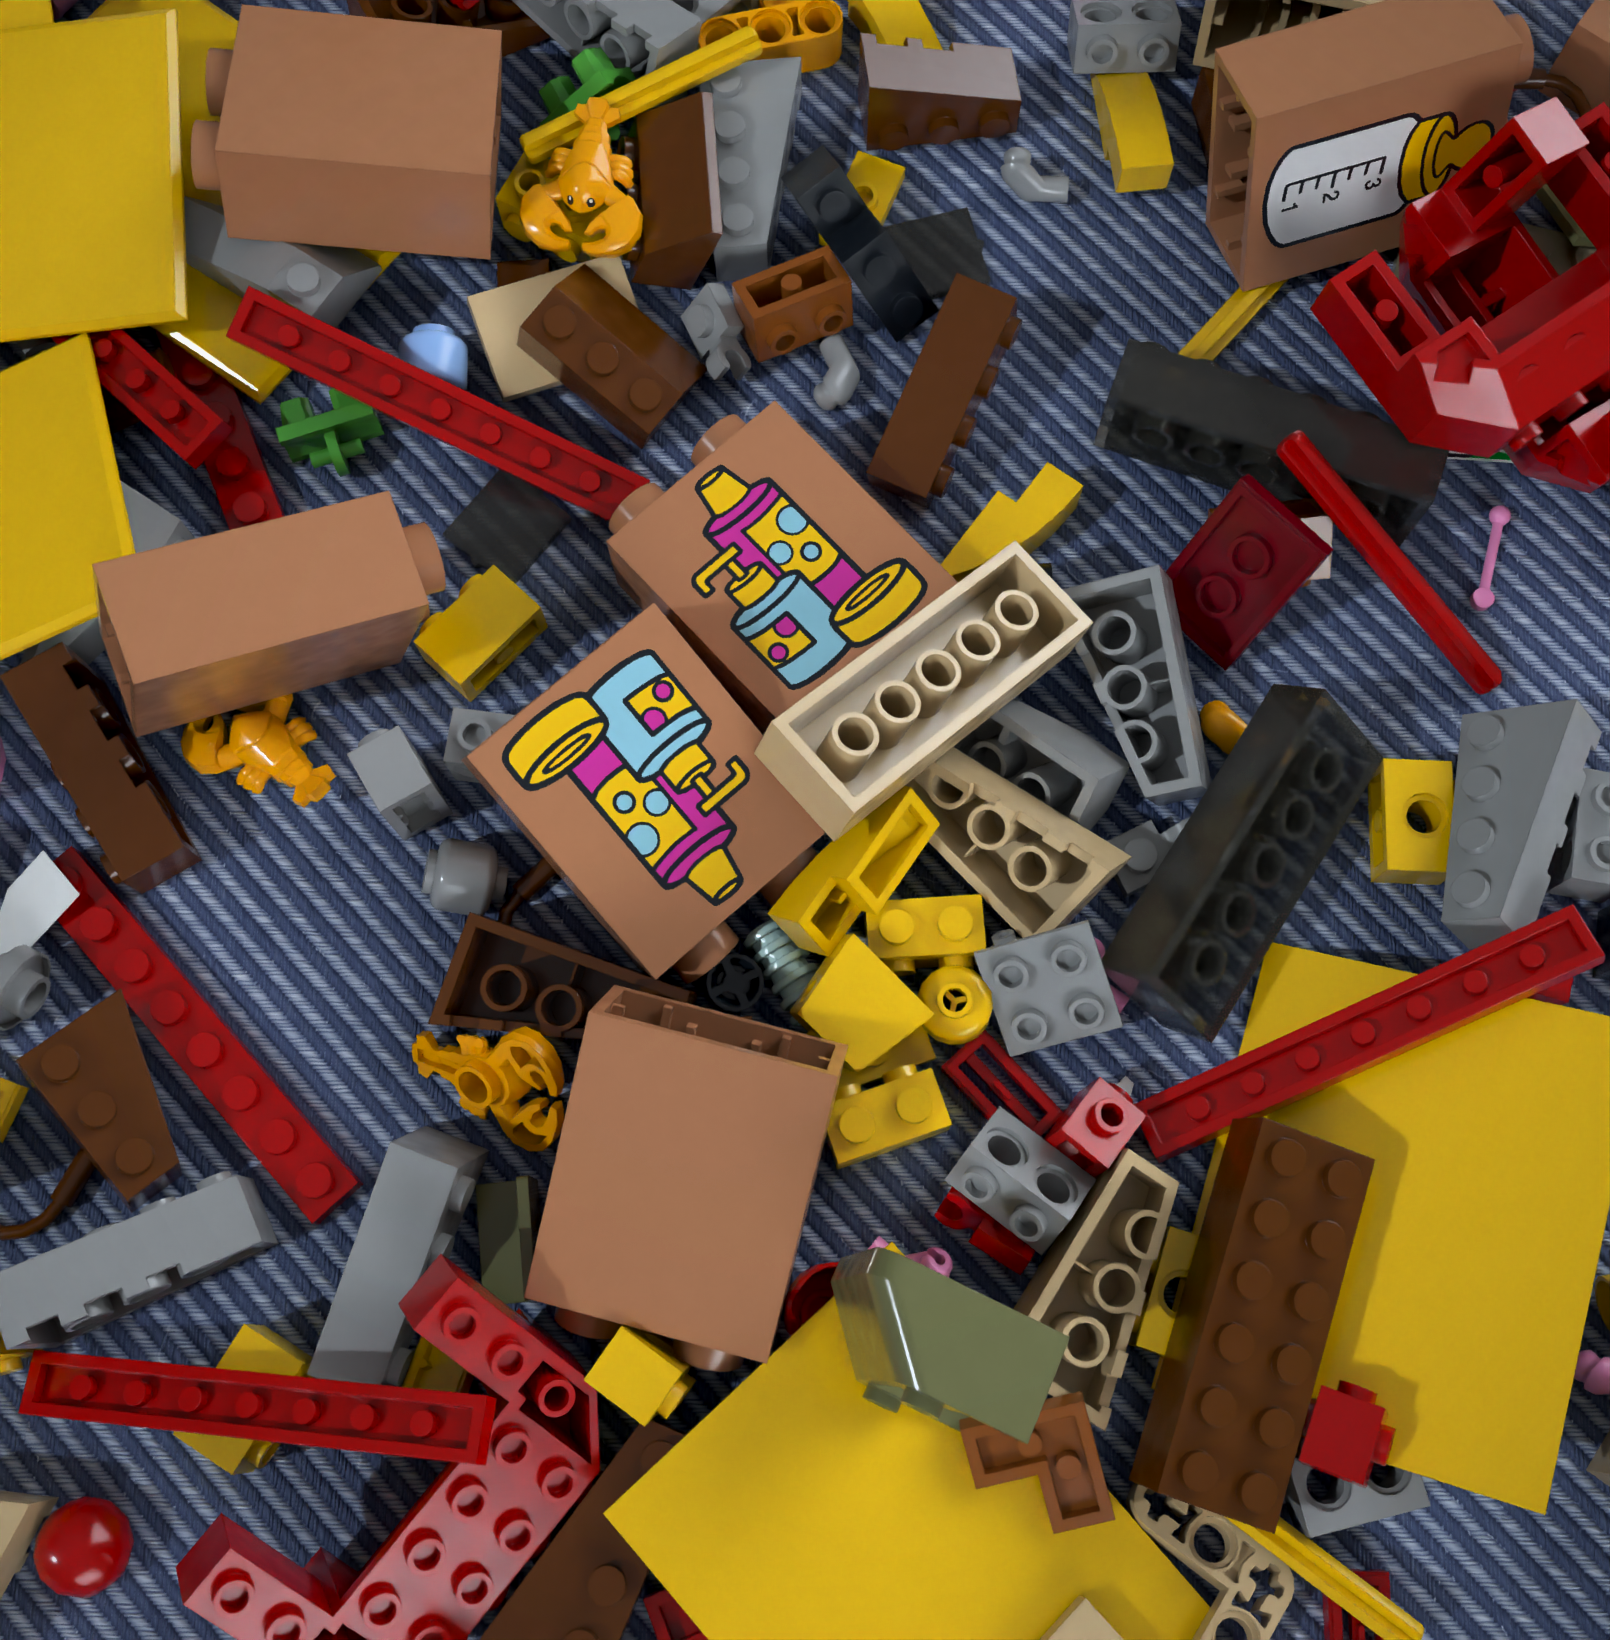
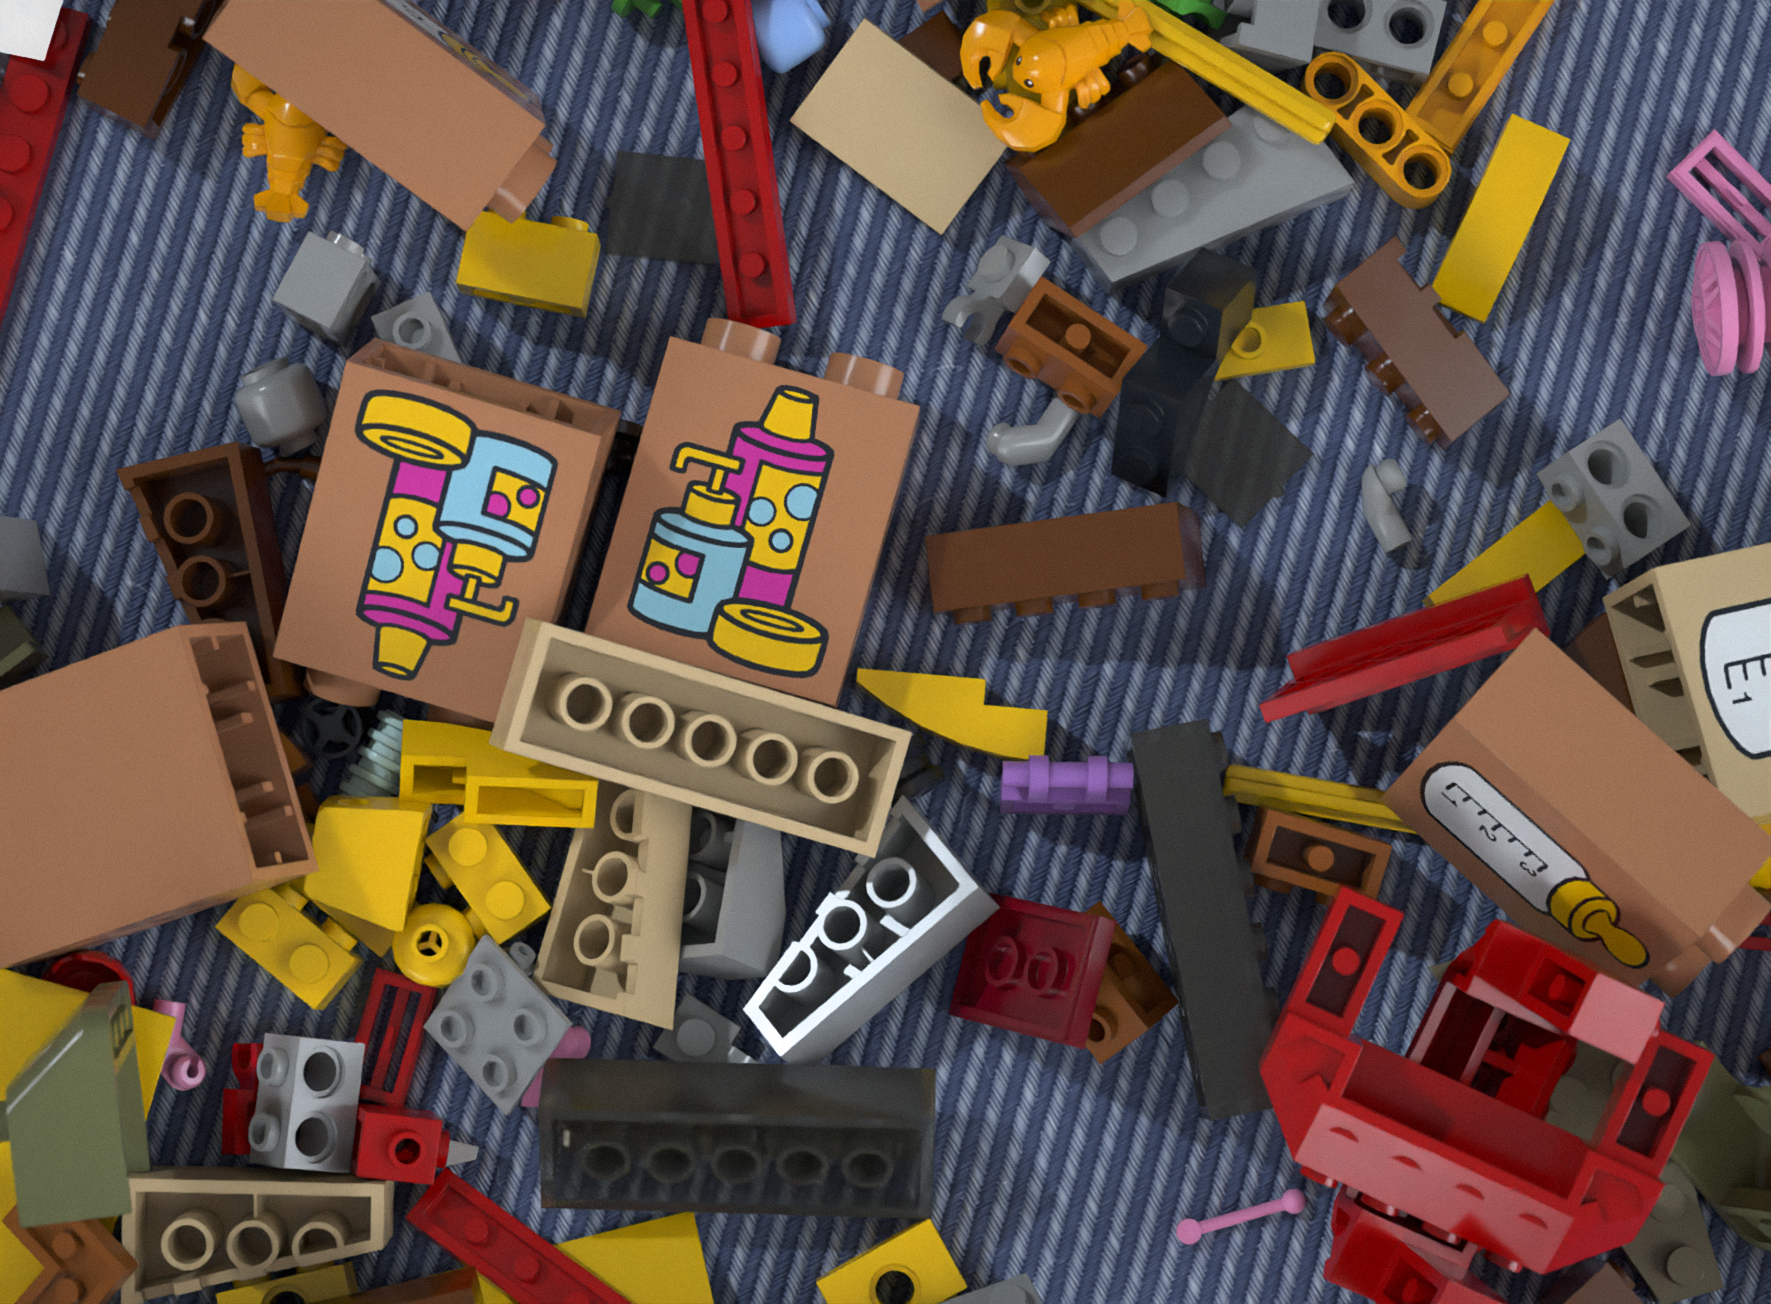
camera: 55 degrees right, 10 degrees up
(500, 1078) = (110, 567): light orange animal -> none
(610, 354) = (901, 202): reddish brown slope -> none
(1110, 483) = (1066, 787): none -> medium lavender plate
(1156, 188) = (1408, 648): none -> red fence
(1221, 725) = (884, 1041): light orange arm -> none
(1271, 338) = (1313, 855): none -> dark orange brick
(1388, 562) = (1135, 1113): red axle -> none

